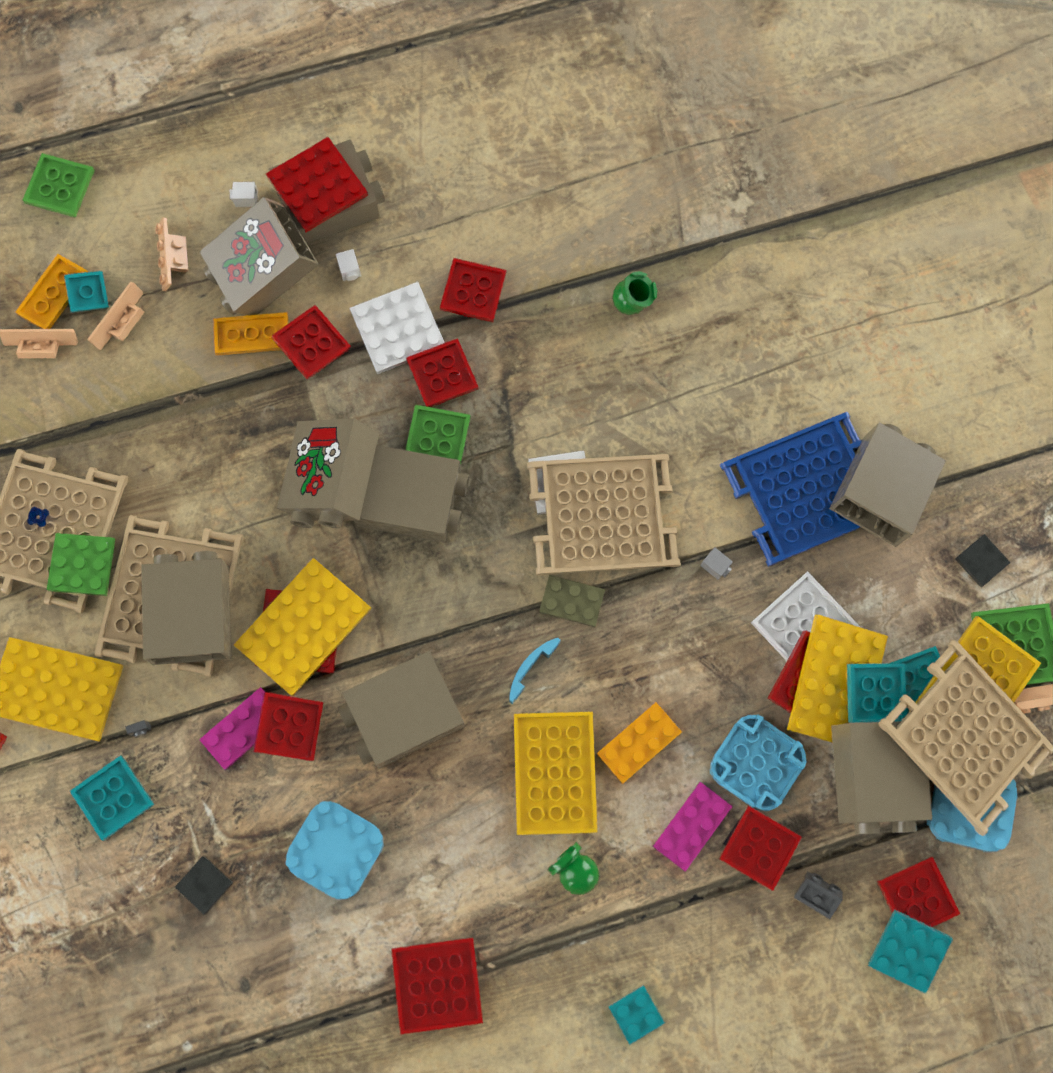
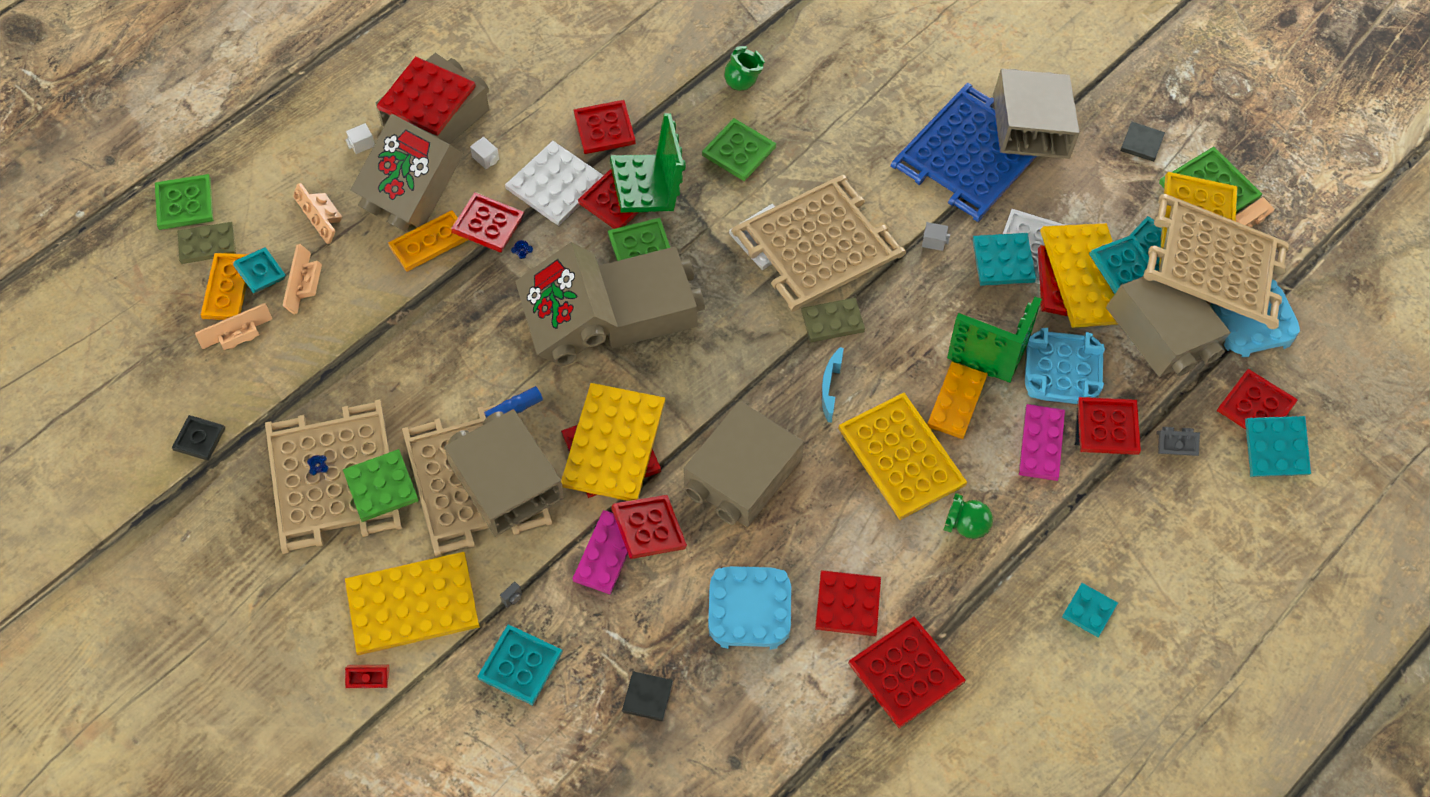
camera: 25 degrees left, 15 degrees down
(58, 237) = (204, 241): none -> olive plate
(234, 546) = (518, 402): none -> blue axle
(324, 381) = (521, 244): none -> clear blue plate
(424, 891) = (848, 603): none -> red plate
(479, 368) = (651, 181): none -> green bracket
(585, 376) = (739, 149): none -> bright green plate
(691, 721) = (989, 347): none -> green bracket
(766, 622) = (1004, 259): none -> teal plate

